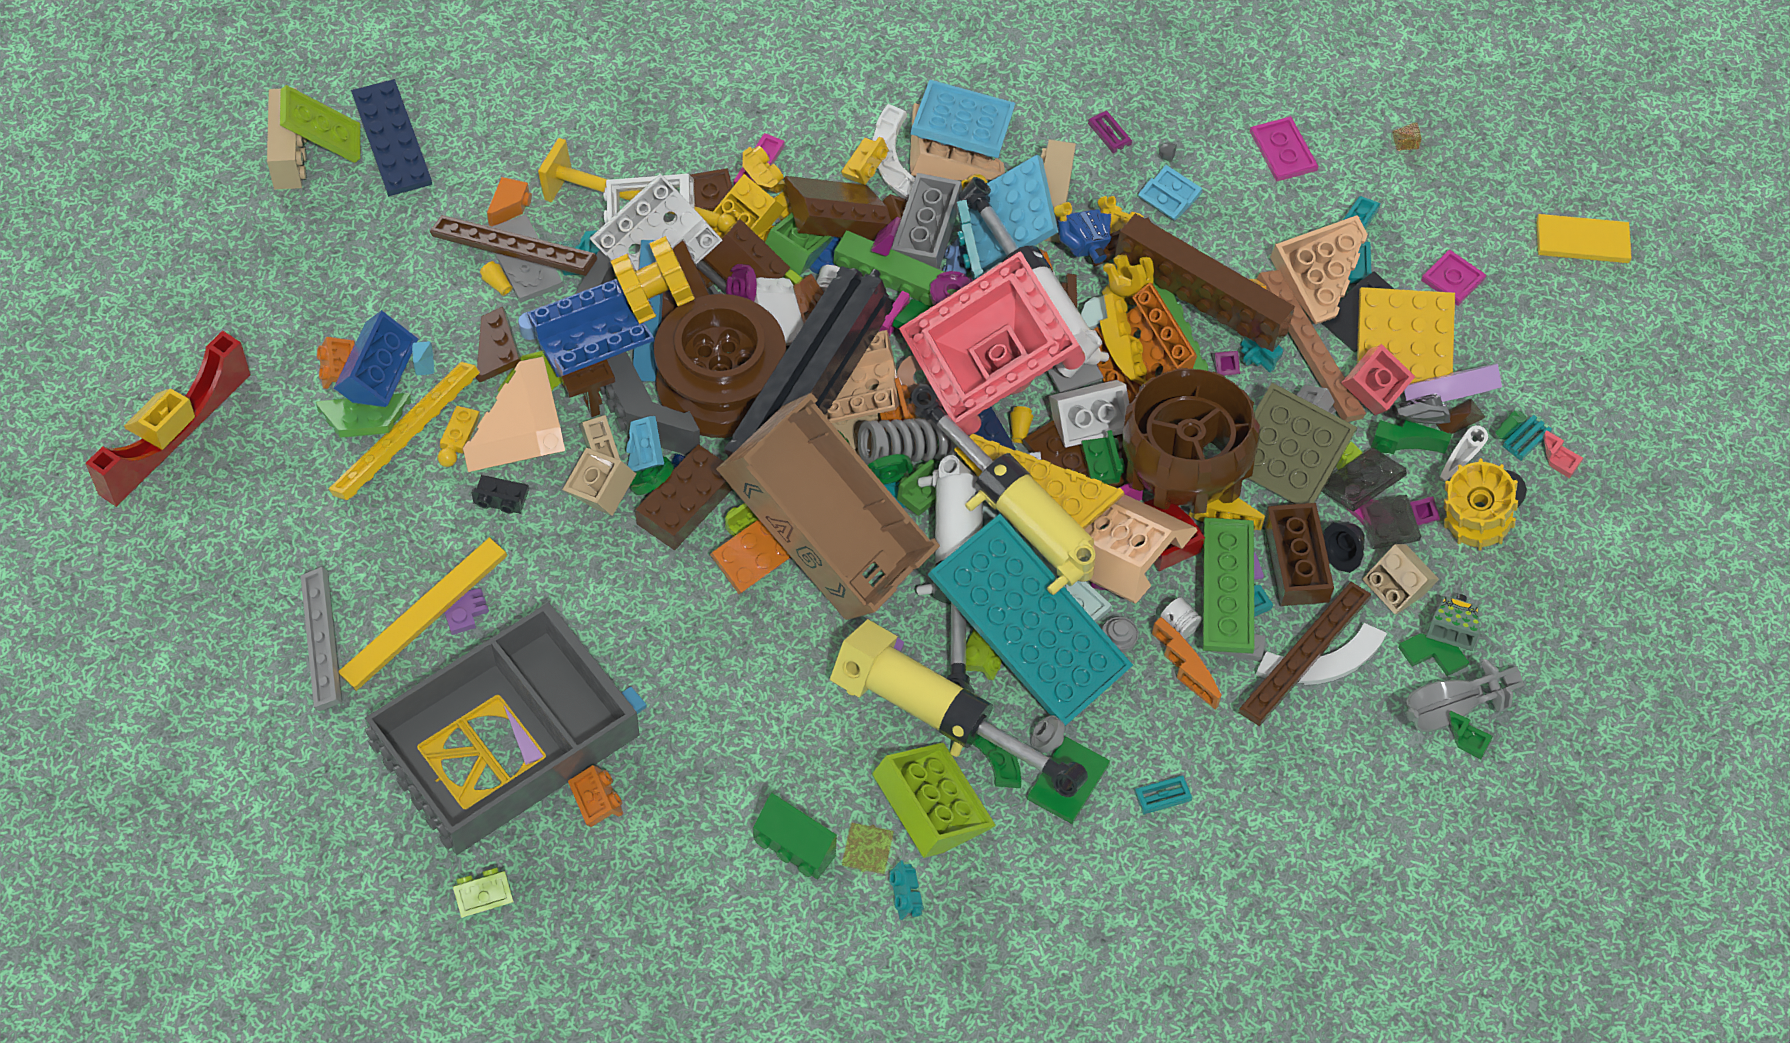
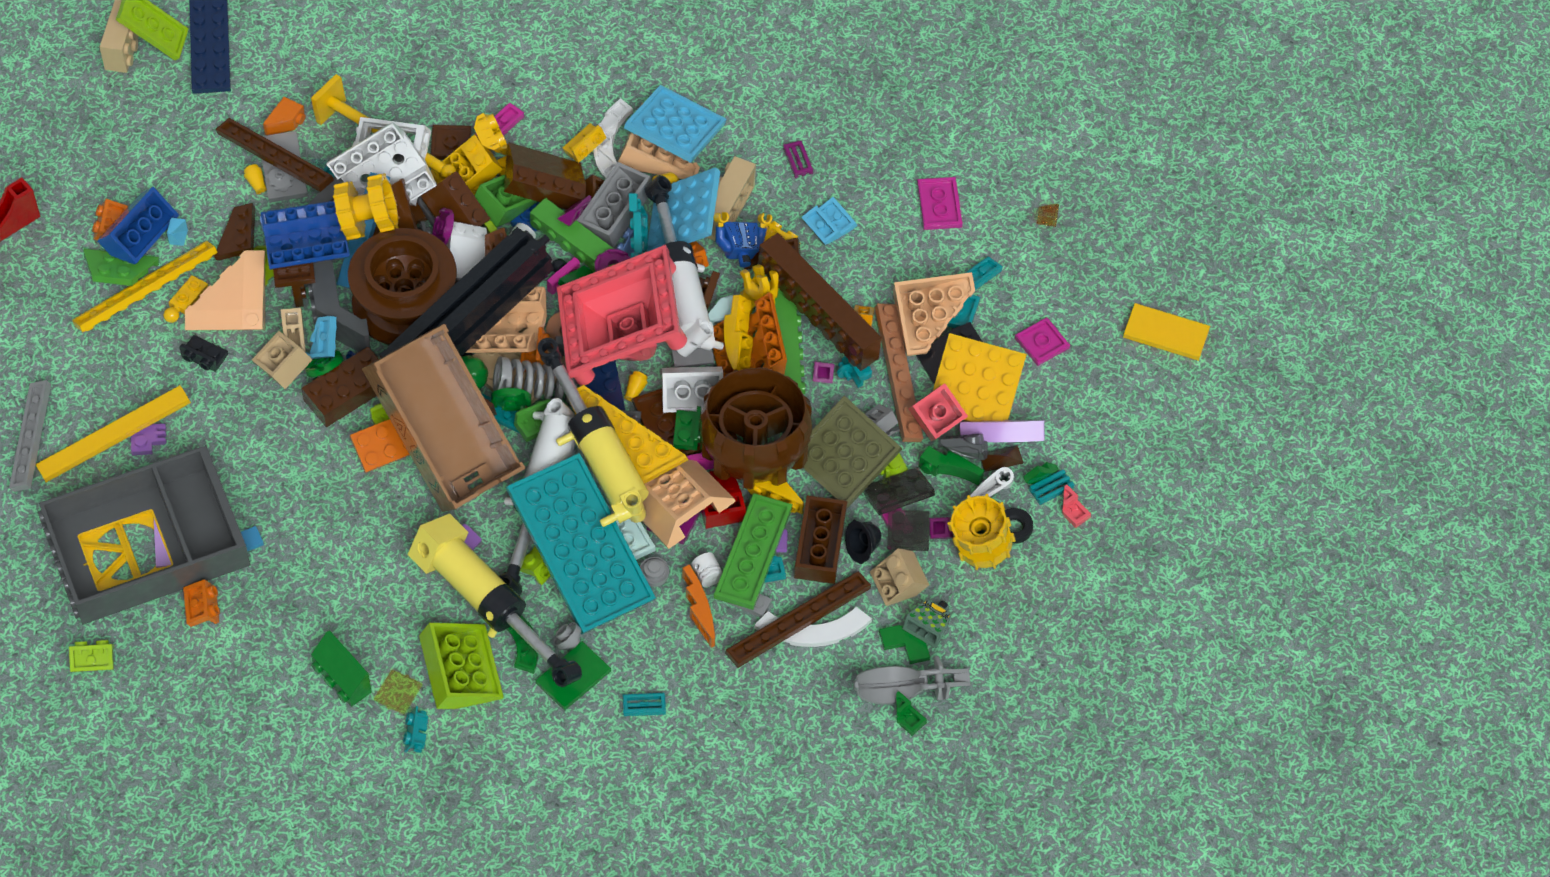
camera: 15 degrees right, 0 degrees up
(1167, 151) = (840, 185): dark grey hinge -> none

